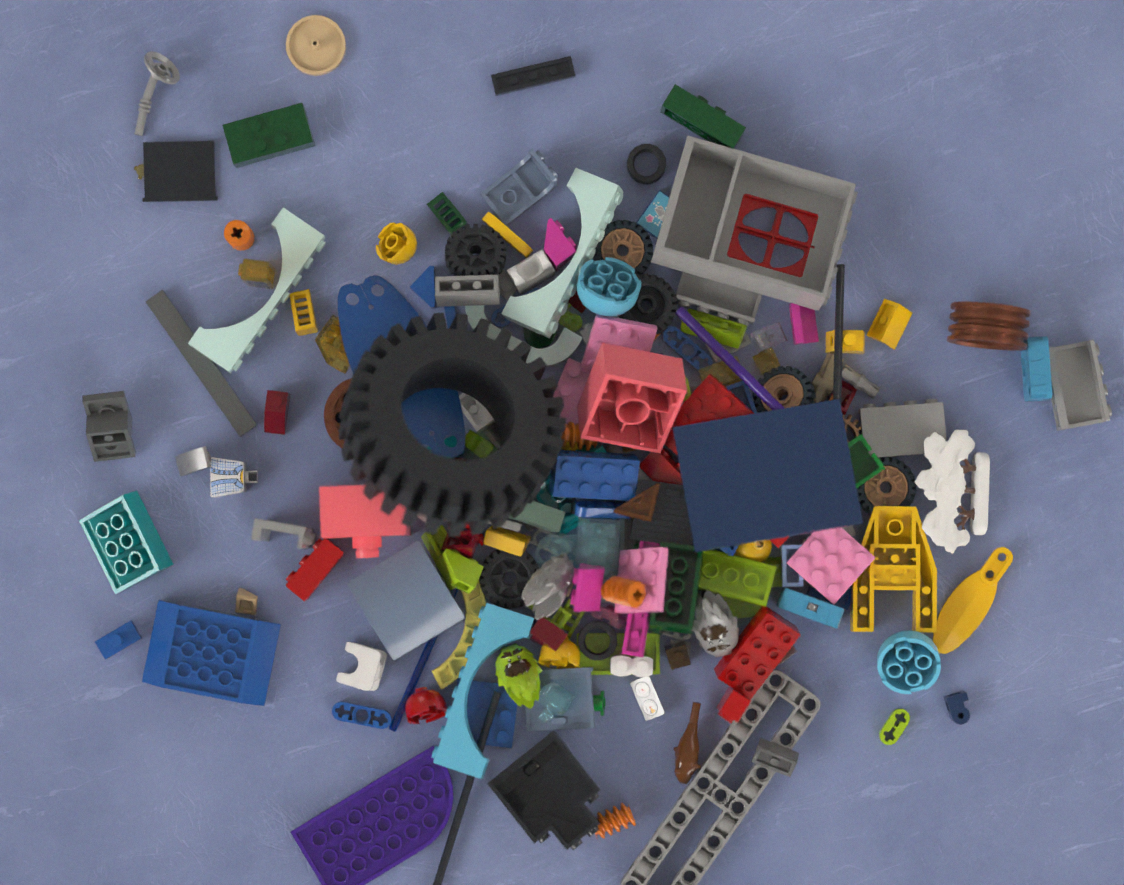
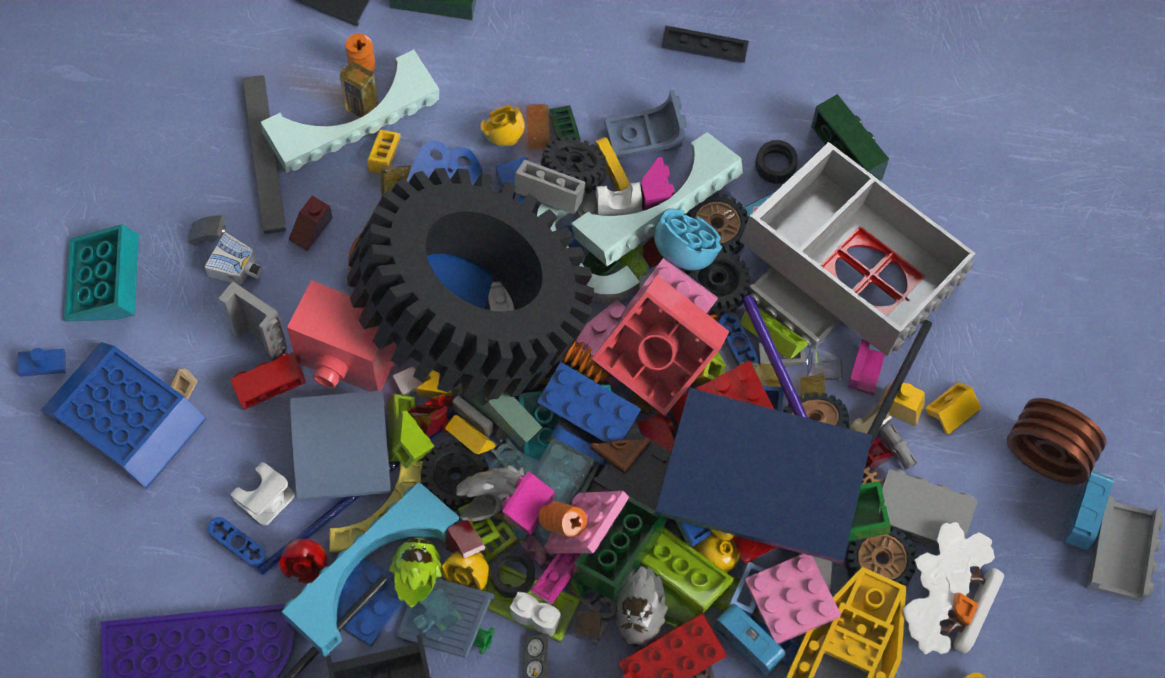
camera: 25 degrees right, 20 degrees down
(109, 426) = (146, 164): dark grey bracket -> none
(424, 225) = (538, 125): none -> clear orange bracket
(968, 500) = (964, 608): none -> orange tile

